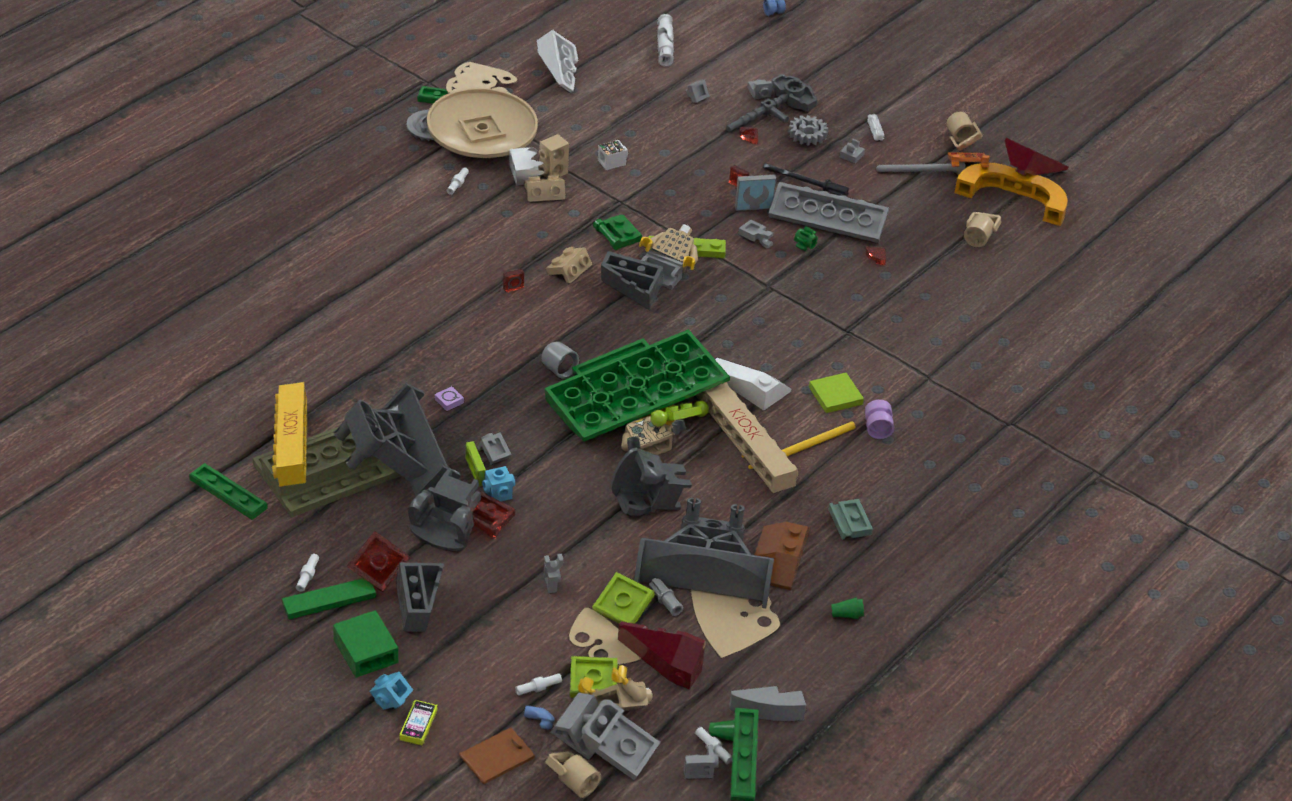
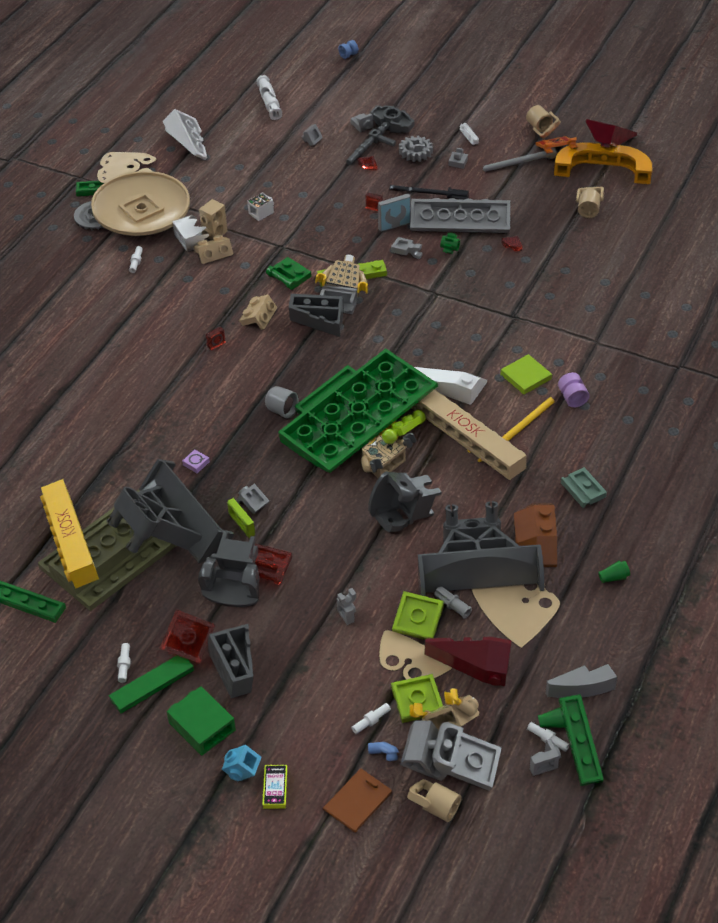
camera: 10 degrees left, 5 degrees up
(499, 483) = (269, 532): medium azure brick -> none

